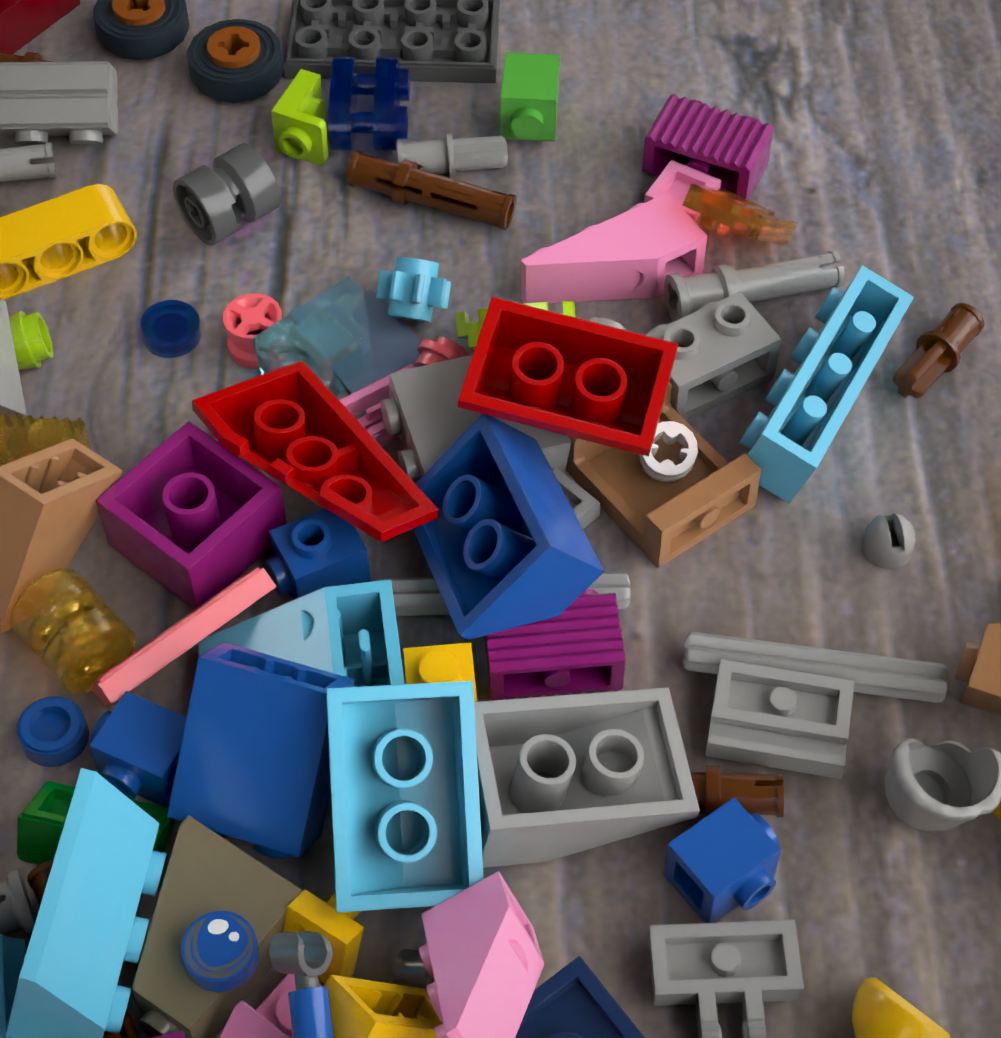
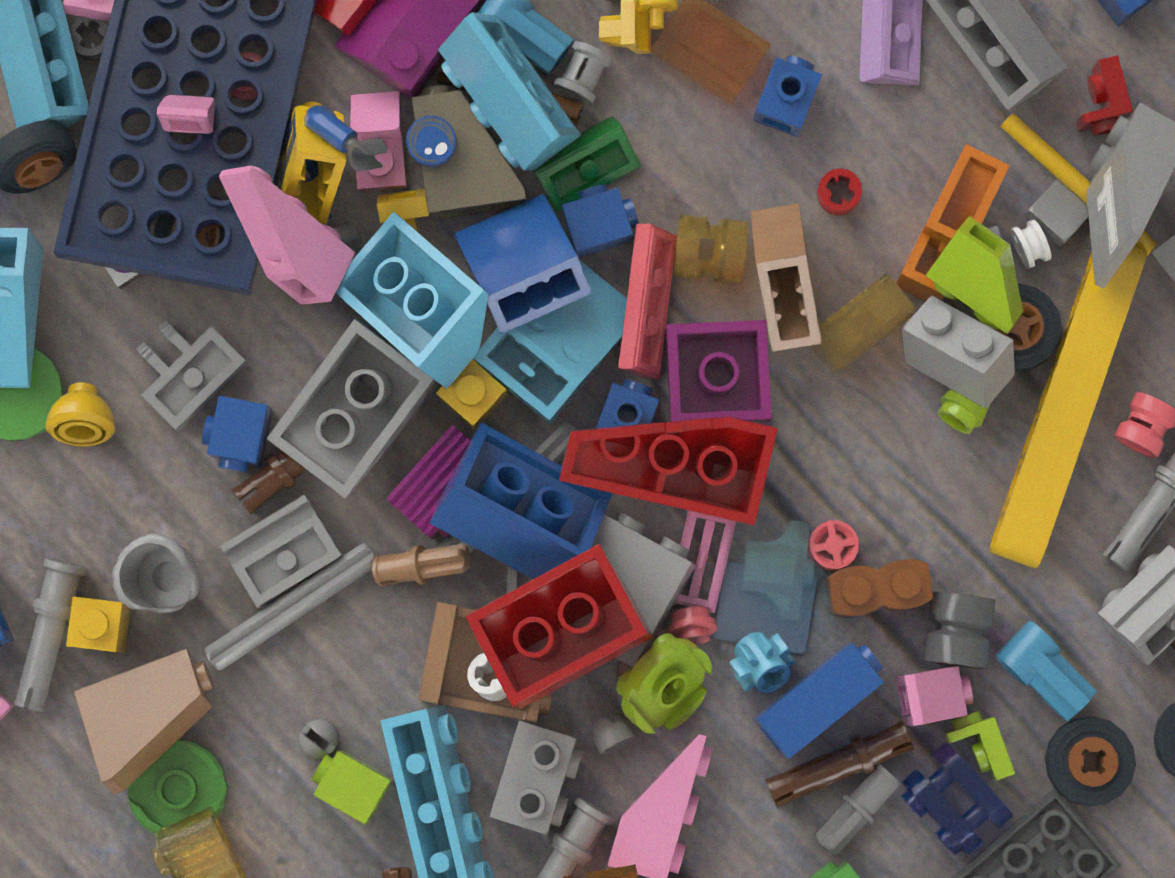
camera: 140 degrees right, 30 degrees up
(52, 731) = (668, 194): blue tile -> none
(170, 328) = (893, 506): clear blue tile -> none
(195, 127) = (1036, 662): none -> dark azure piece
(244, 260) = (892, 587): none -> dark orange brick
(310, 165) = (933, 695): none -> bright pink slope
(393, 209) = (820, 698): none -> blue brick
(647, 587) = (420, 564): none -> medium nougat axle
(891, 467) = (350, 785): none -> lime brick

